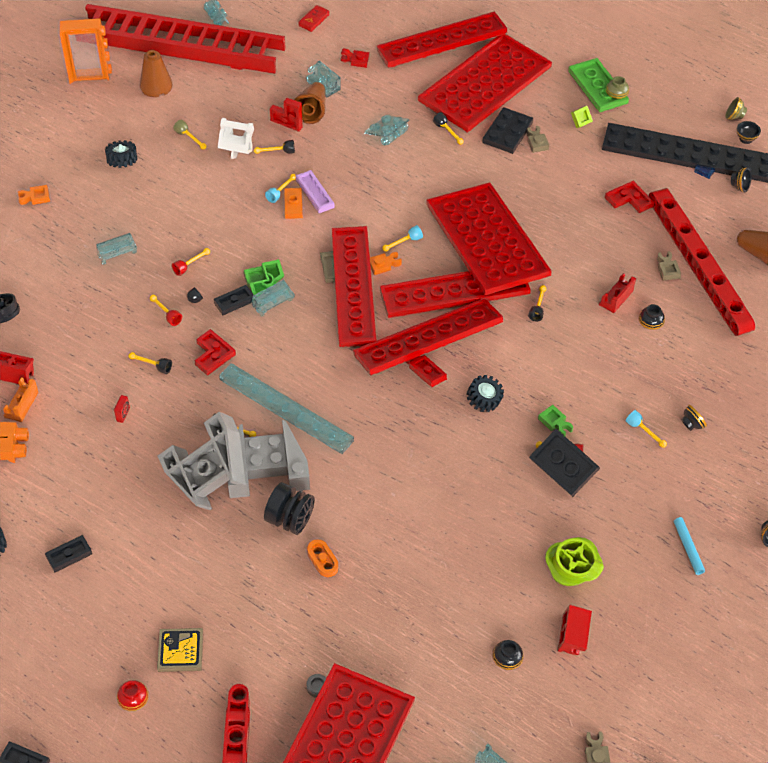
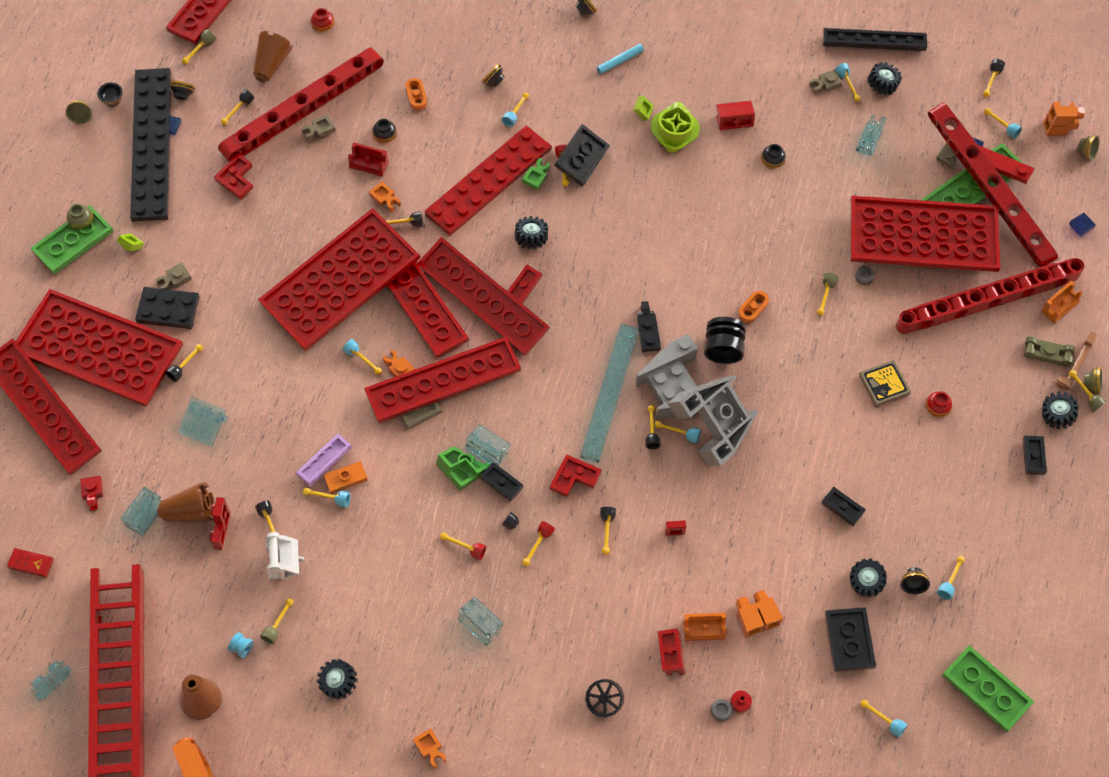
camera: 110 degrees left, 10 degrees up
(181, 109) = (240, 645): none -> medium azure wheel
(322, 643) = (829, 281): none -> hinge
(339, 460) = (648, 329): none -> black hinge
(566, 384) = (487, 180): none -> red plate
(572, 294) = (383, 194): none -> orange plate
(611, 541) = (643, 108): none -> lime plate
(688, 350) = (416, 95): none -> orange plate
(720, 223) = (246, 98): none -> hinge

